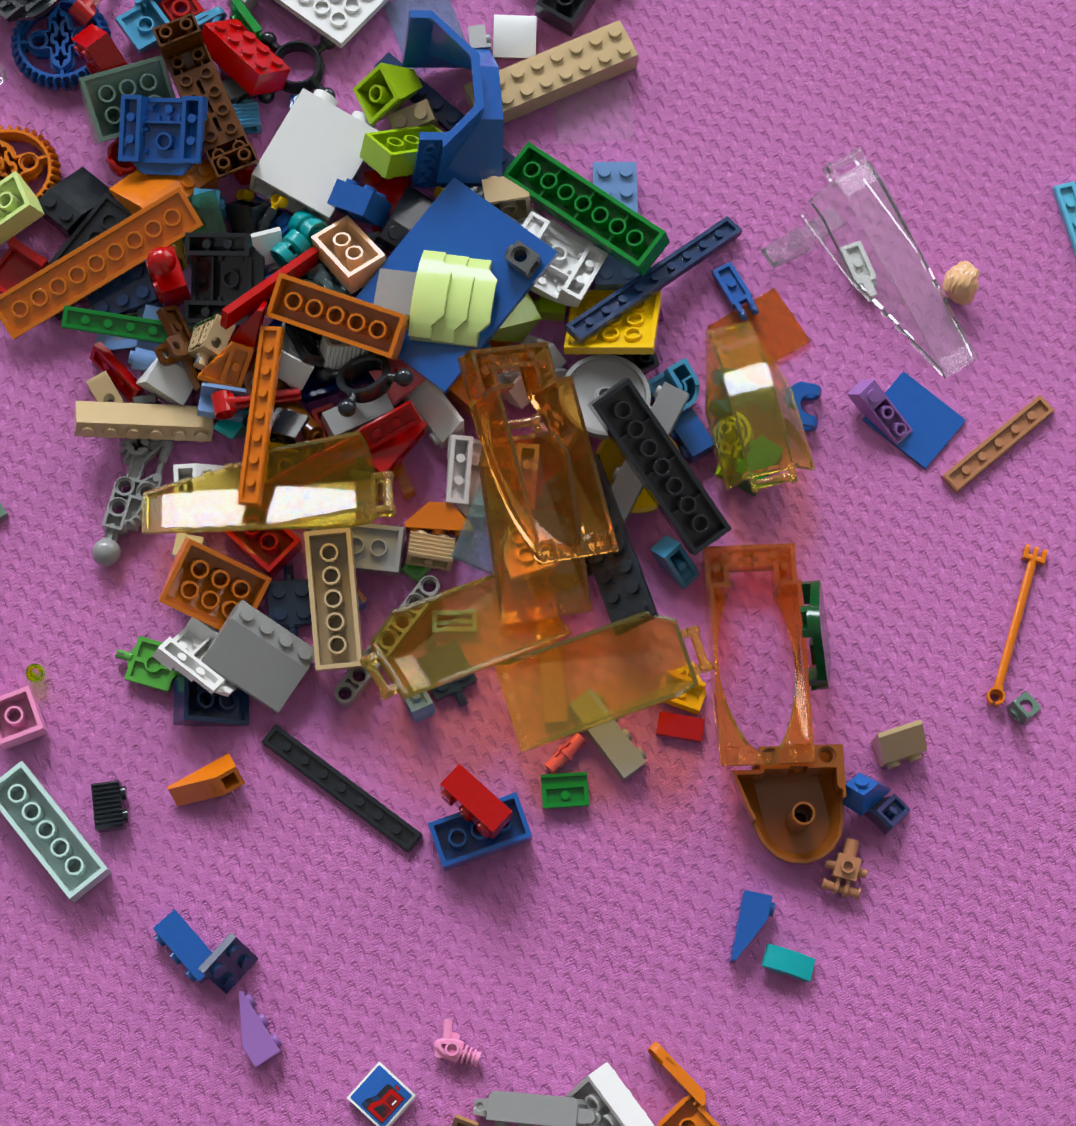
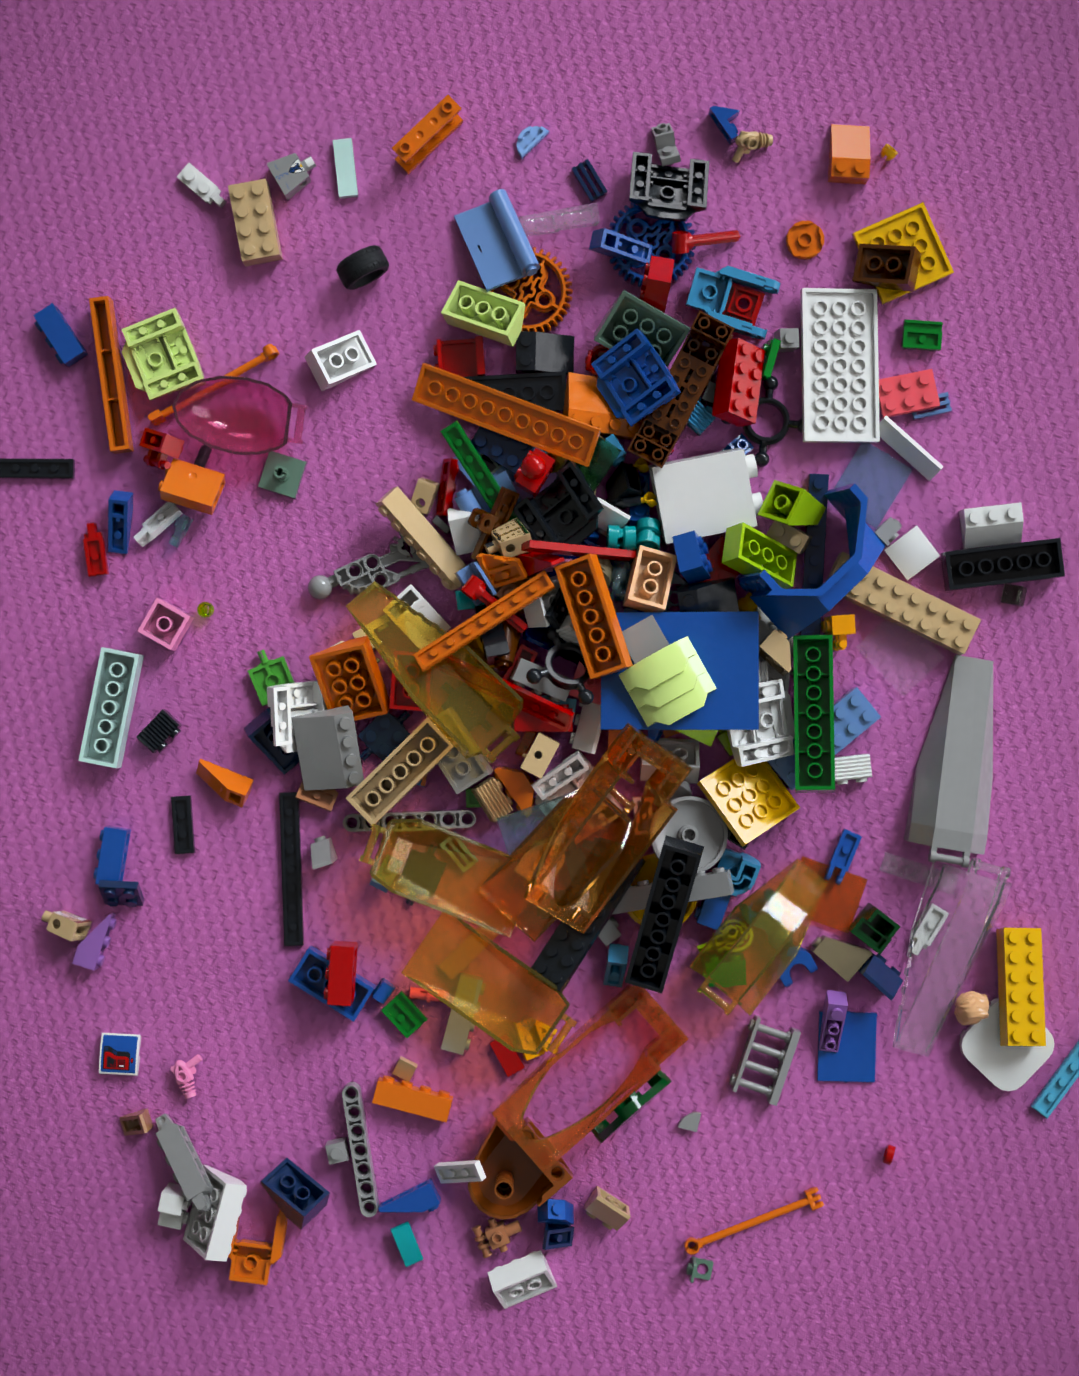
camera: 60 degrees right, 15 degrees up
(40, 62) = (620, 246): none -> blue slope
(214, 857) = (183, 824): none -> black tile
(221, 1040) = (66, 925): none -> tan torso
(298, 705) = (323, 799): none -> nougat wing
(350, 740) = (322, 852): none -> light grey slope
(423, 467) = (539, 755): none -> tan brick
(525, 130) = (839, 627): none -> light orange brick
(526, 792) = (383, 991): none -> blue brick
(529, 265) = (728, 719): dark grey brick -> none
(617, 832) = (405, 1069): none -> tan slope
(640, 542) = (610, 932): none -> light grey brick
(645, 956) = (337, 1150): none -> light grey brick
(652, 845) = (413, 1099): none -> orange brick
(654, 280) = (813, 802): dark blue plate -> none
(654, 1027) = (295, 1192): none -> dark blue slope
(667, 217) = (852, 767): none -> white brick
(667, 944) = (360, 1158): none -> light grey beam
(730, 139) = (956, 767): none -> light grey windscreen
(756, 851) = (460, 1171): none -> white plate
(822, 308) = (874, 928): none -> dark green plate
(824, 360) = (840, 955): none -> dark tan slope
(870, 339) = (881, 976): none -> dark blue slope
(875, 609) = (690, 1121): none -> light grey tile
(879, 477) = (778, 1074): none -> light grey fence
(907, 879) = (521, 1279): none -> white slope
(974, 226) = (1020, 987): none -> yellow brick
(997, 444) = (874, 1116): nougat tile -> none
(1019, 280) = (1002, 1065): none -> white tile
(1043, 456) = (889, 1154): none -> red tile

